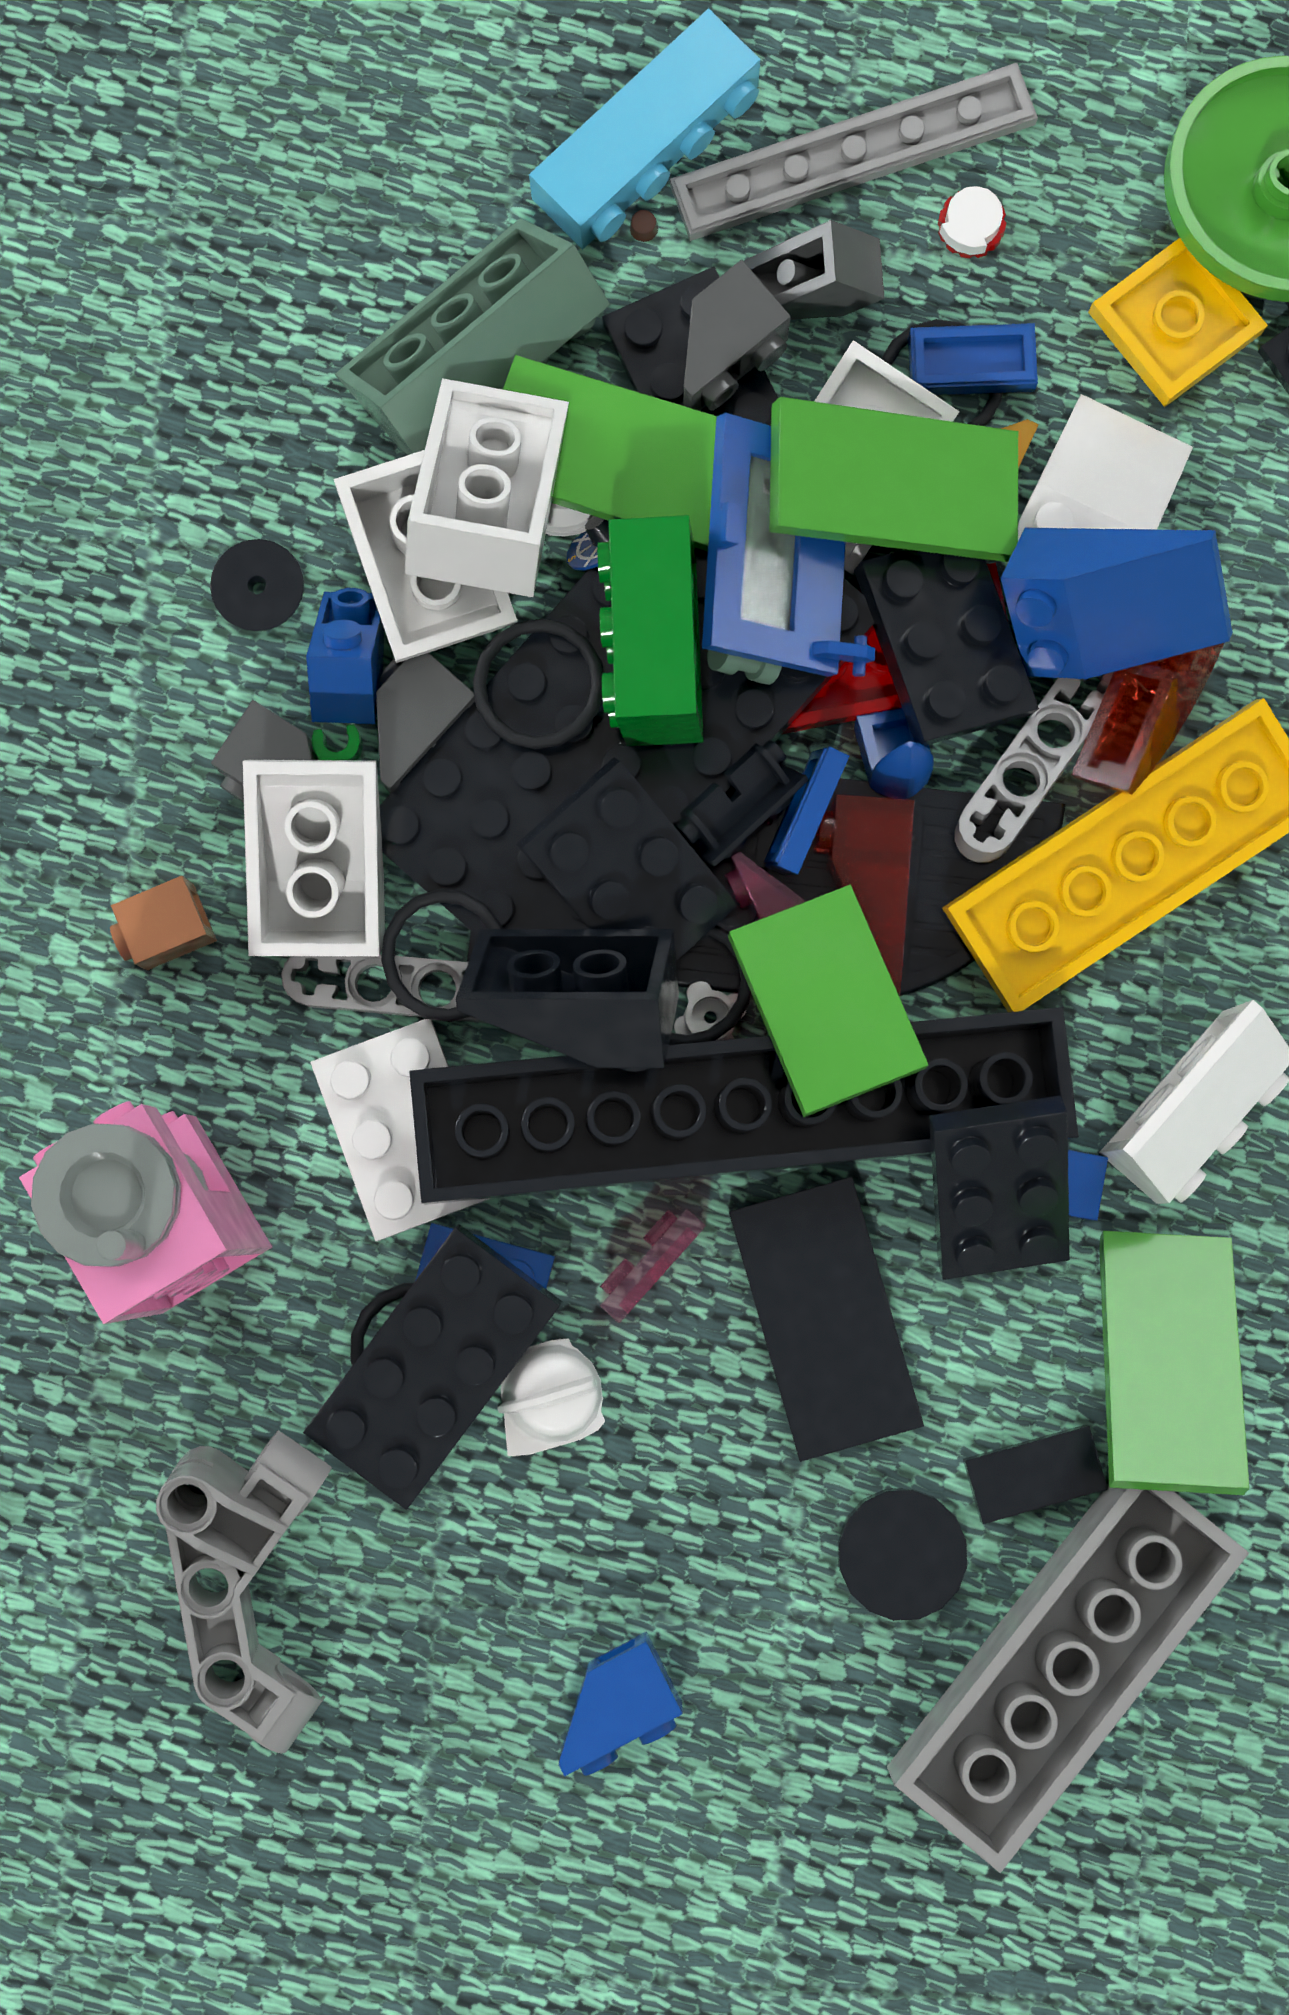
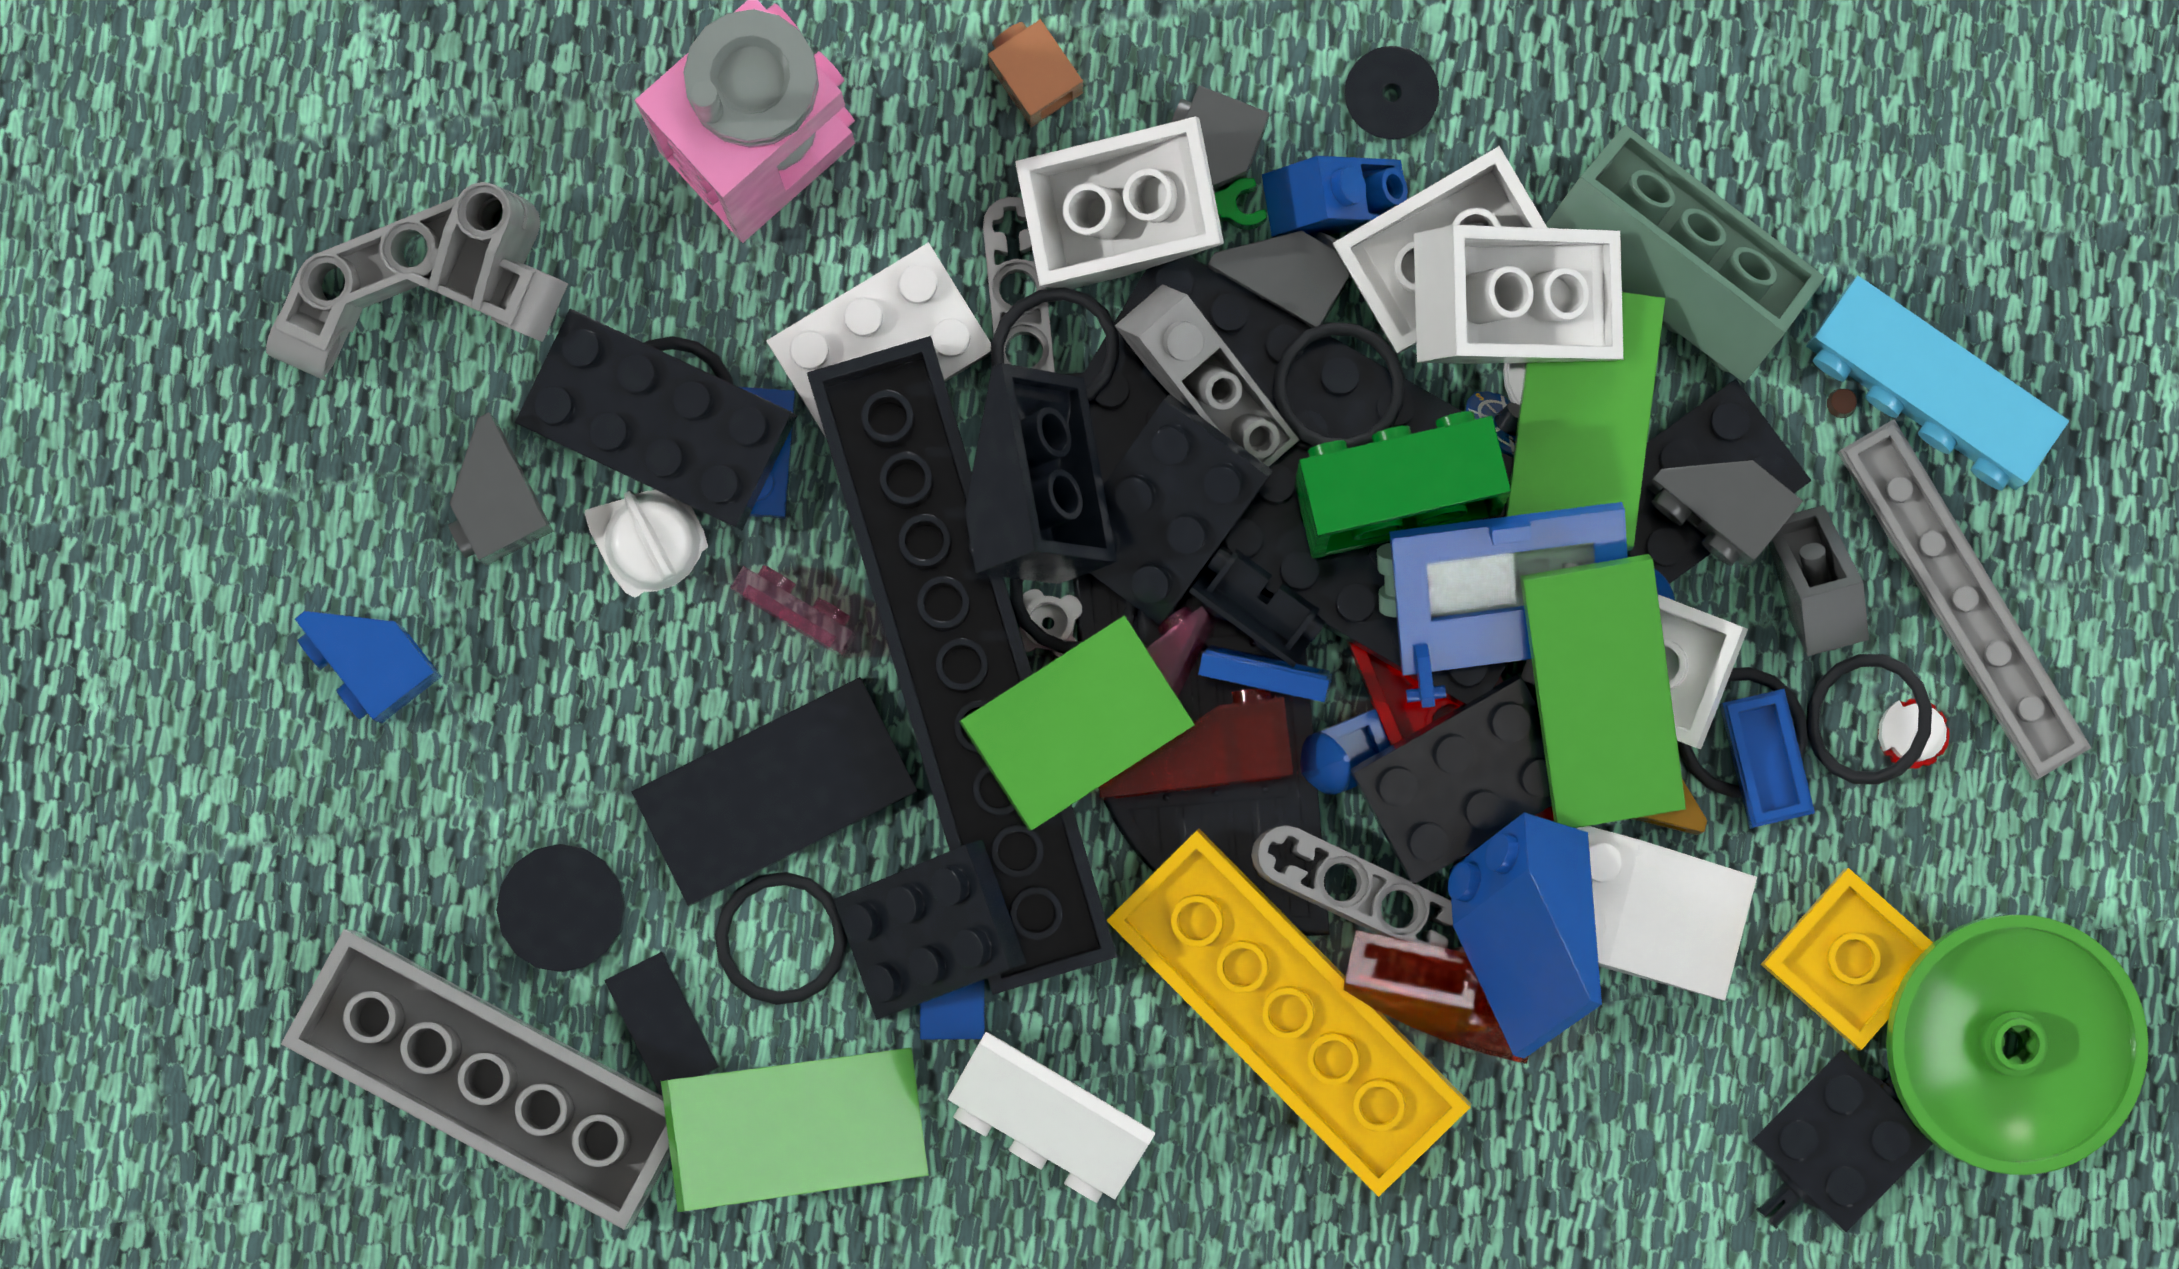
camera: 75 degrees right, 0 degrees up
(479, 1546) = (494, 499): none -> dark grey slope
(494, 812) = (1204, 373): none -> light grey slope
(925, 1376) = (732, 970): none -> black piece
(1009, 270) = (1920, 739): none -> black piece

